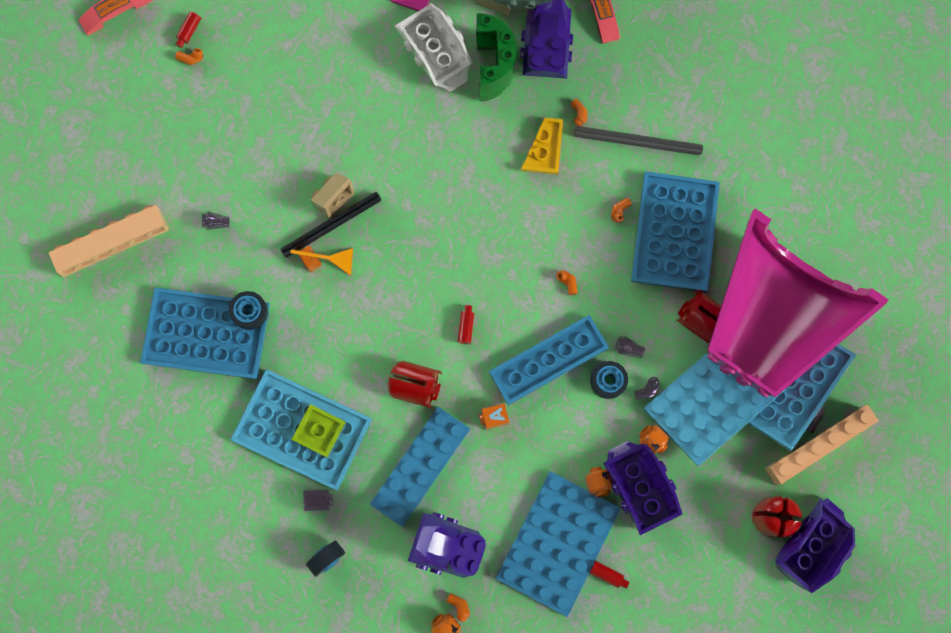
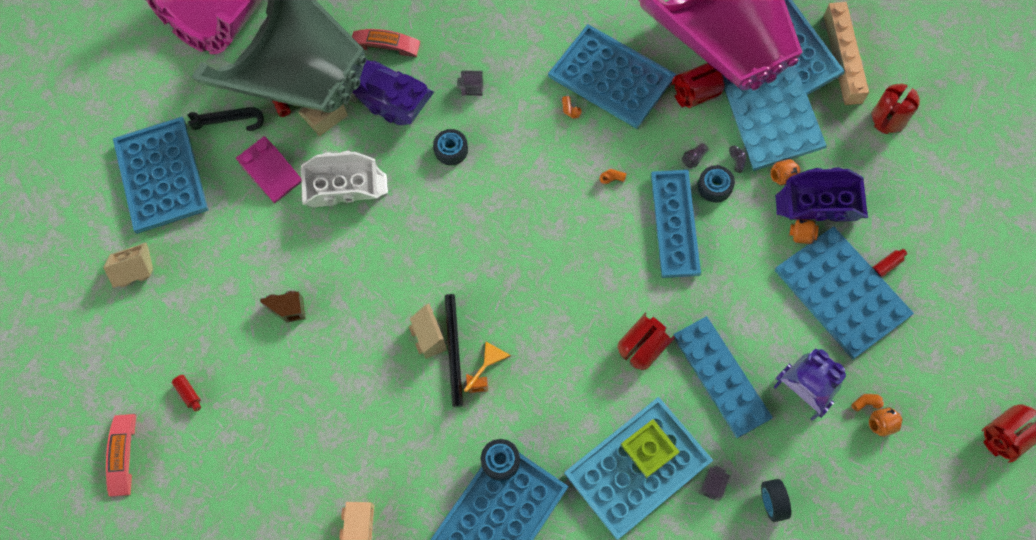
camera: 55 degrees left, 10 degrees down
(195, 57) = (217, 404): orange arm -> none
(214, 221) = (390, 457): cone -> none
(298, 65) = (286, 306): none -> reddish brown slope
(466, 325) = (610, 276): red cylinder -> none
(494, 417) = (706, 290): orange brick -> none
(495, 34) = (379, 126): green cylinder -> none
(522, 132) = (453, 155): none -> wheel
(546, 148) = (485, 139): yellow wing -> none
(581, 112) = (467, 97): orange arm -> none
(597, 107) = (471, 83): none -> clear purple brick
(638, 140) = (516, 68): dark grey axle -> none
(818, 548) = (940, 90): dark purple slope -> none

